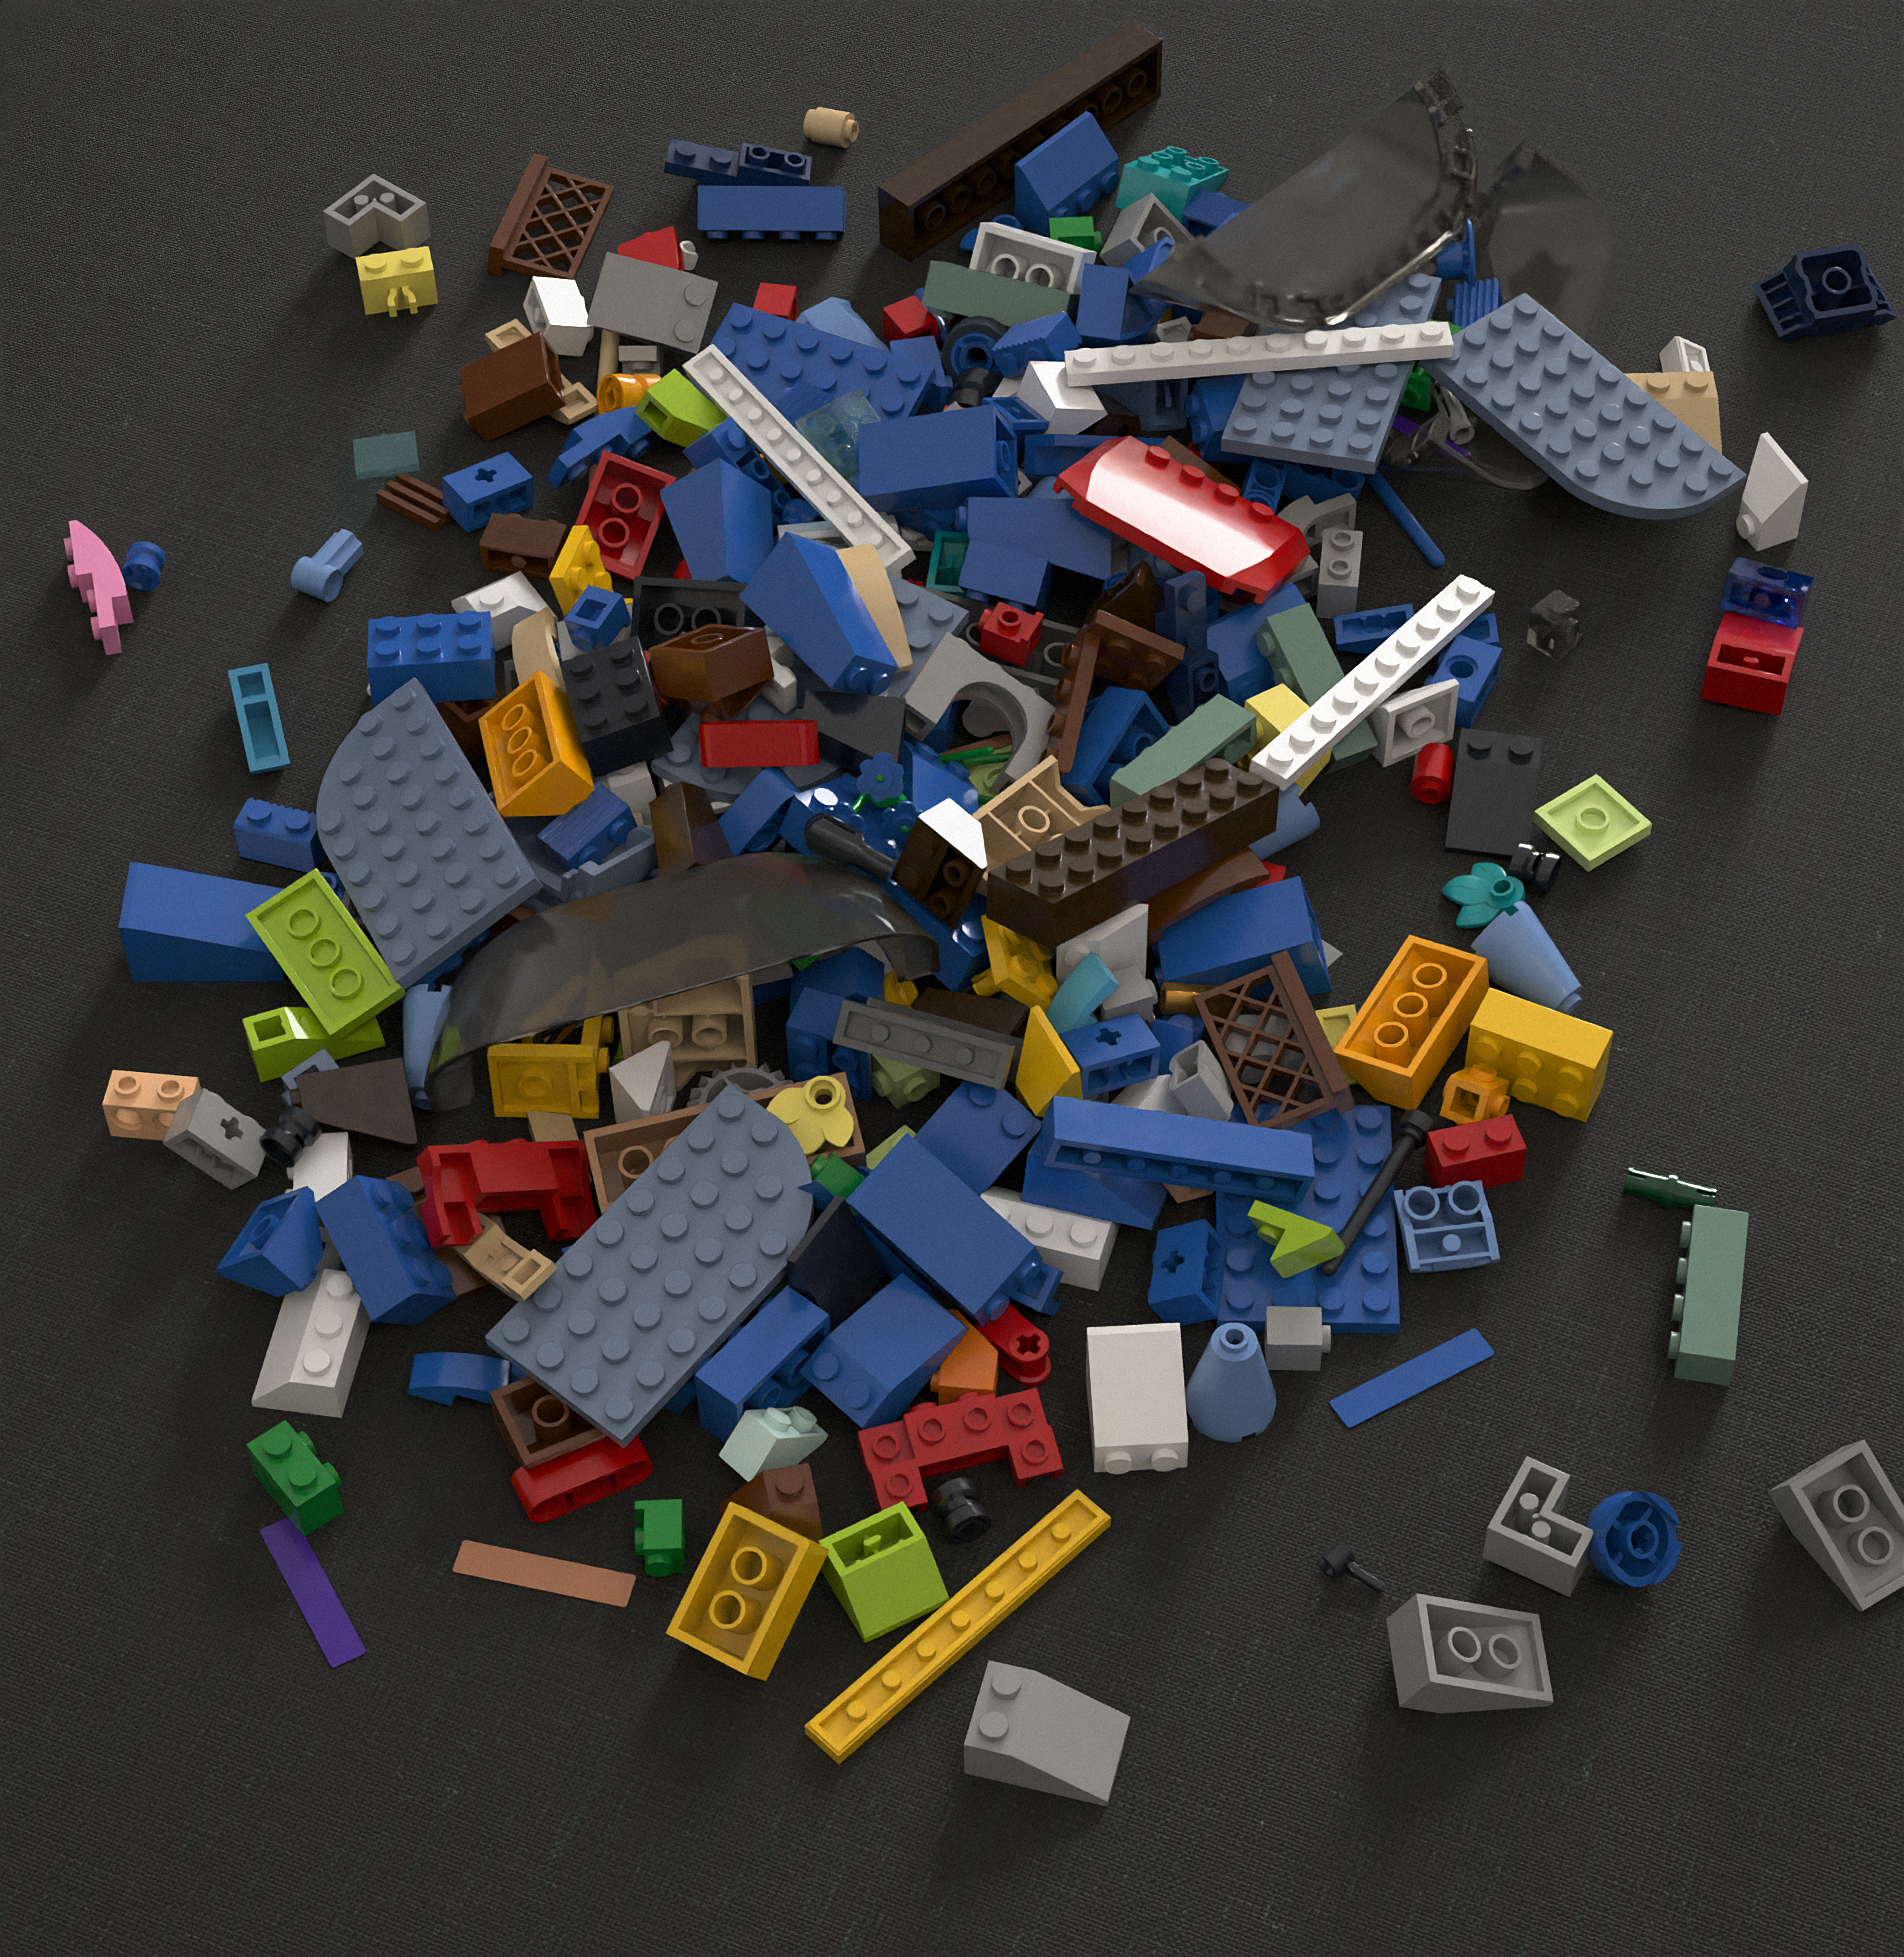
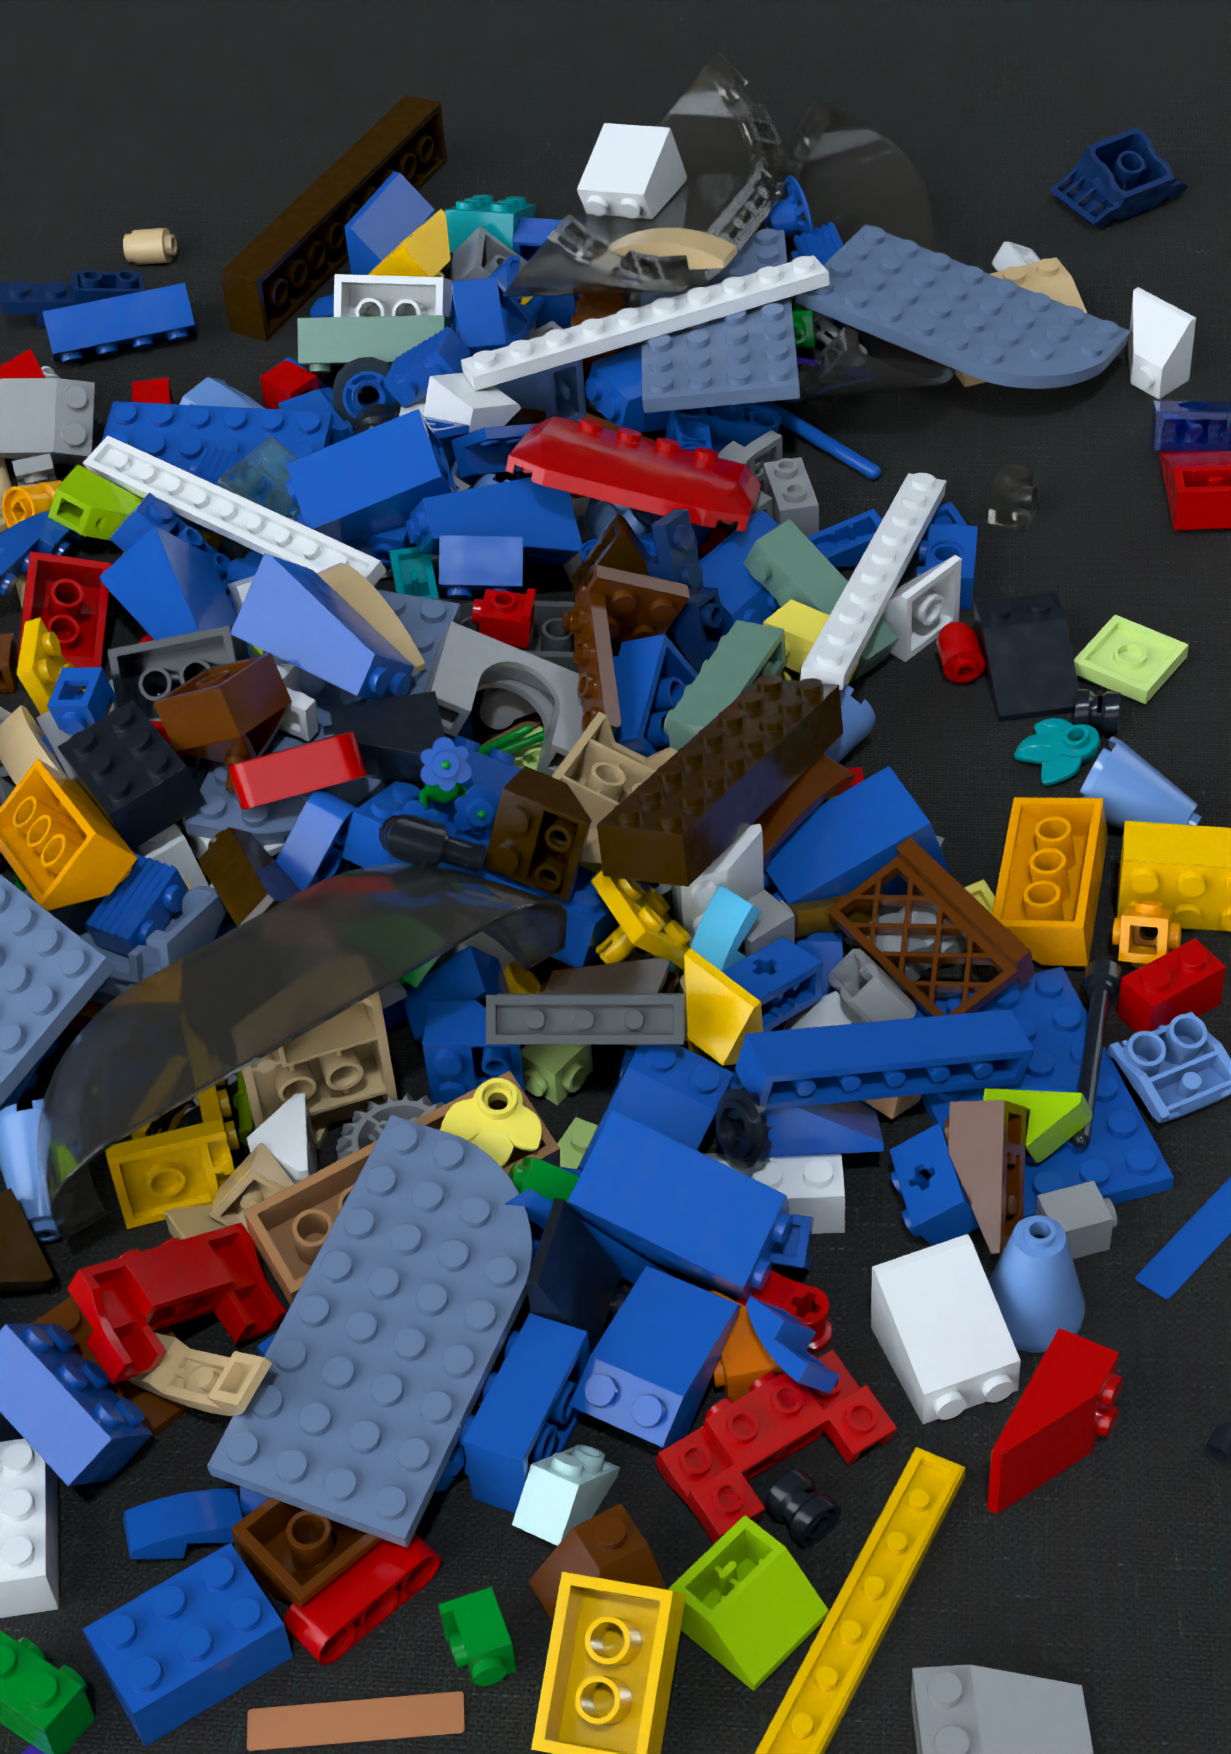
camera: 15 degrees left, 5 degrees down
(431, 1473) = (188, 1643): none -> blue brick
(601, 1109) = (249, 1184): none -> tan slope
(994, 1370) = (787, 1343): none -> blue slope
(1027, 1177) = (743, 1128): none -> black gear
(1076, 214) = (420, 253): none -> yellow slope
(1192, 1499) = (1055, 1418): none -> red slope
(1232, 1266) = (989, 1157): none -> slope
(1309, 179) = (631, 172): none -> white slope
(1331, 291) = (701, 248): none -> tan slope

